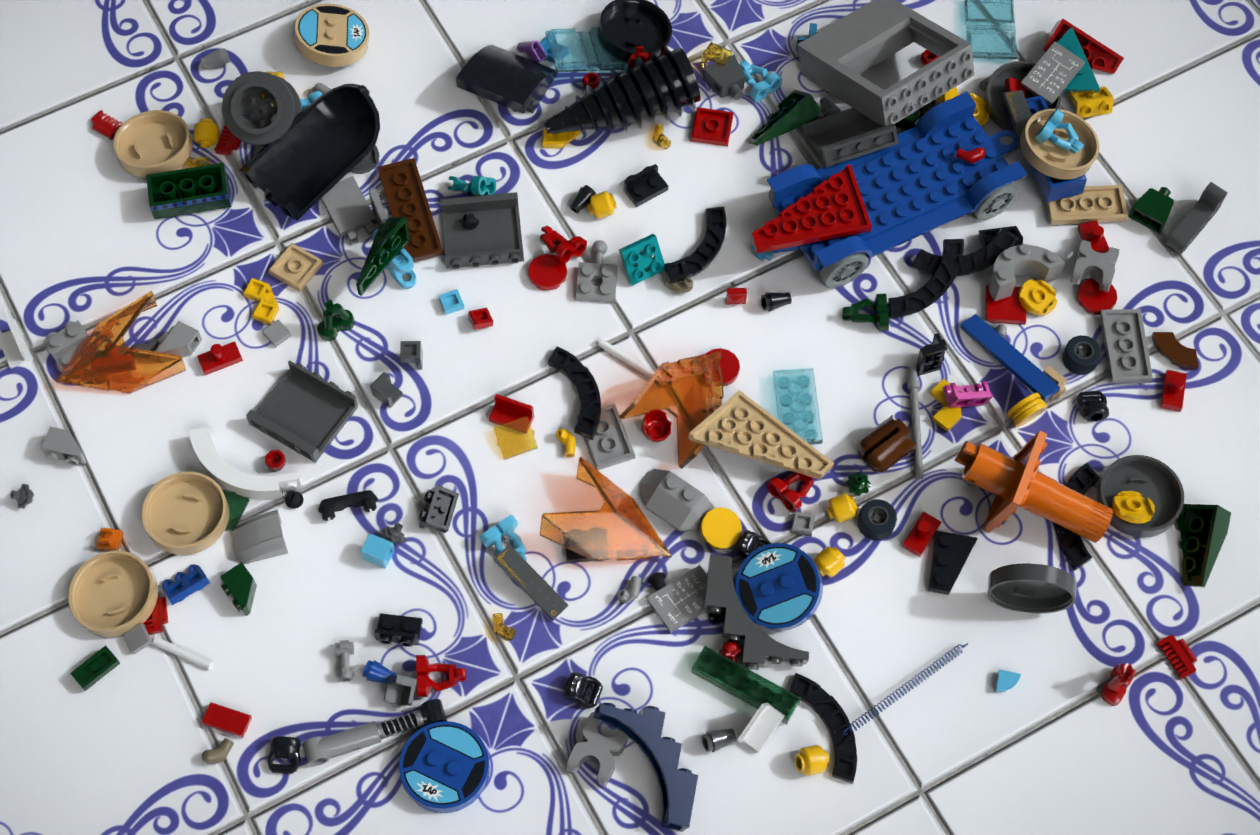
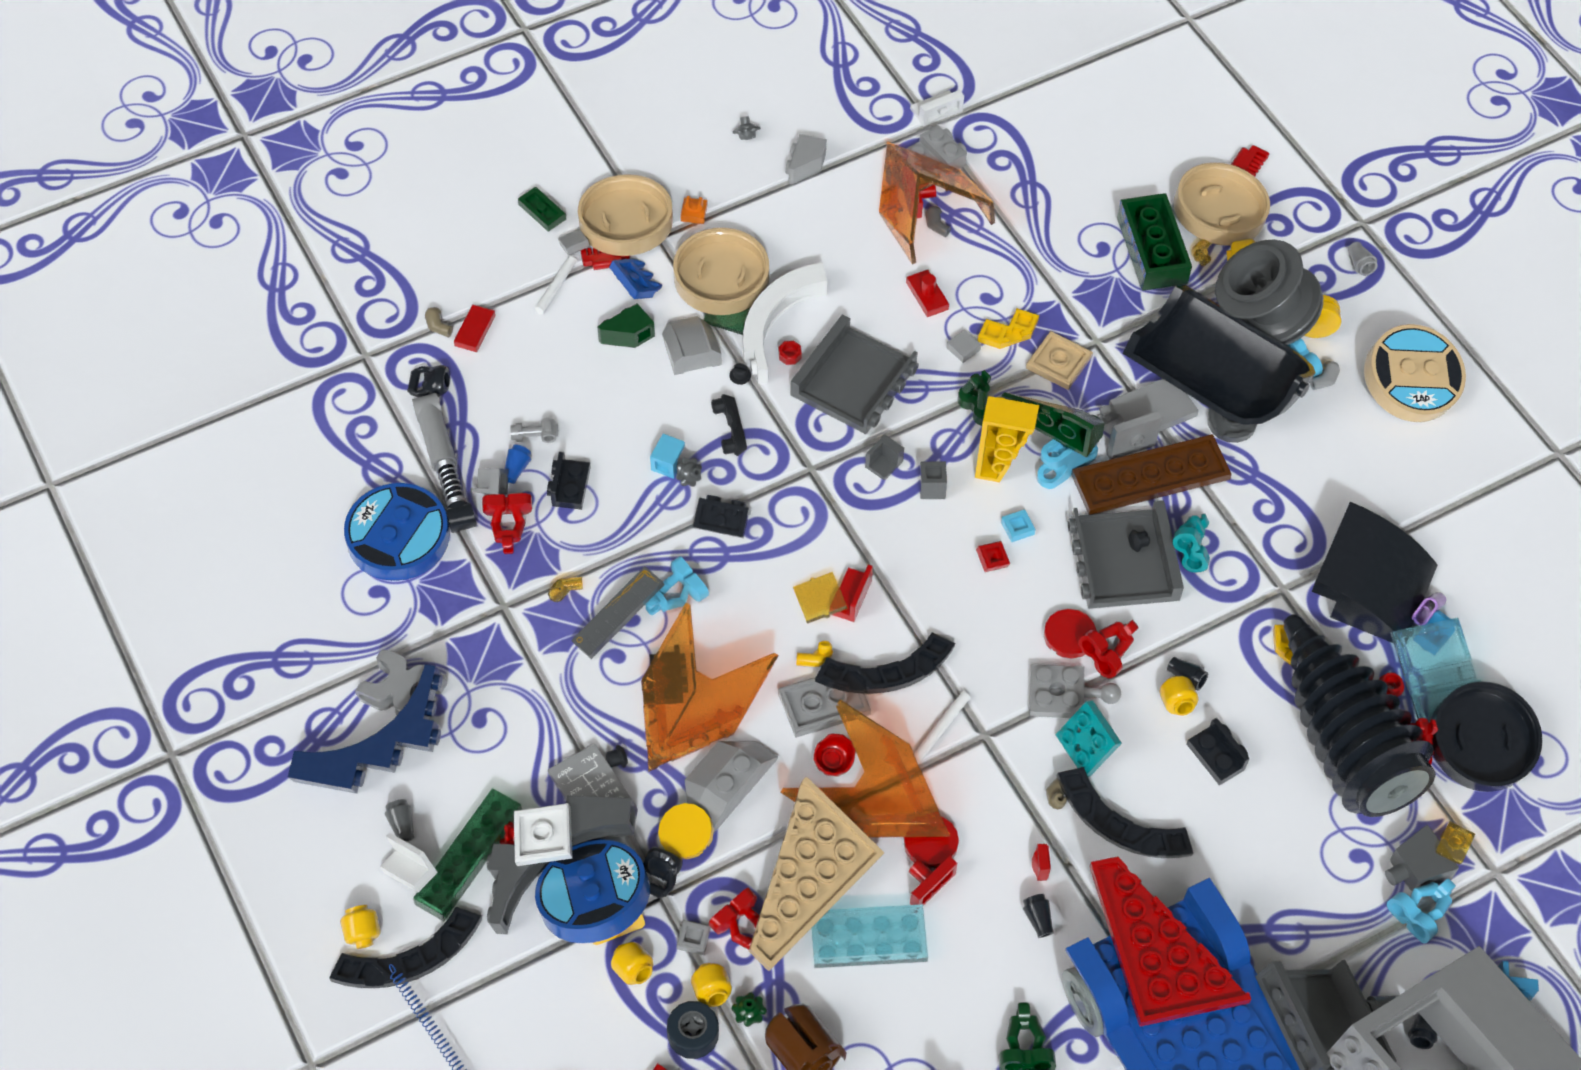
camera: 90 degrees right, 5 degrees down
(180, 341) = (944, 250): light grey slope -> none
(391, 292) = (1002, 435): none -> yellow wedge
(577, 688) = (480, 665): black piece -> none
(631, 593) = (603, 728): light grey arm -> none
(660, 139) = (1302, 771): clear yellow arm -> none
(712, 126) = (1334, 844): red tile -> none
(739, 620) = (542, 834): none -> white tile
(754, 365) = (930, 880): none -> red tile
(792, 113) = (1368, 957): dark green wedge -> none

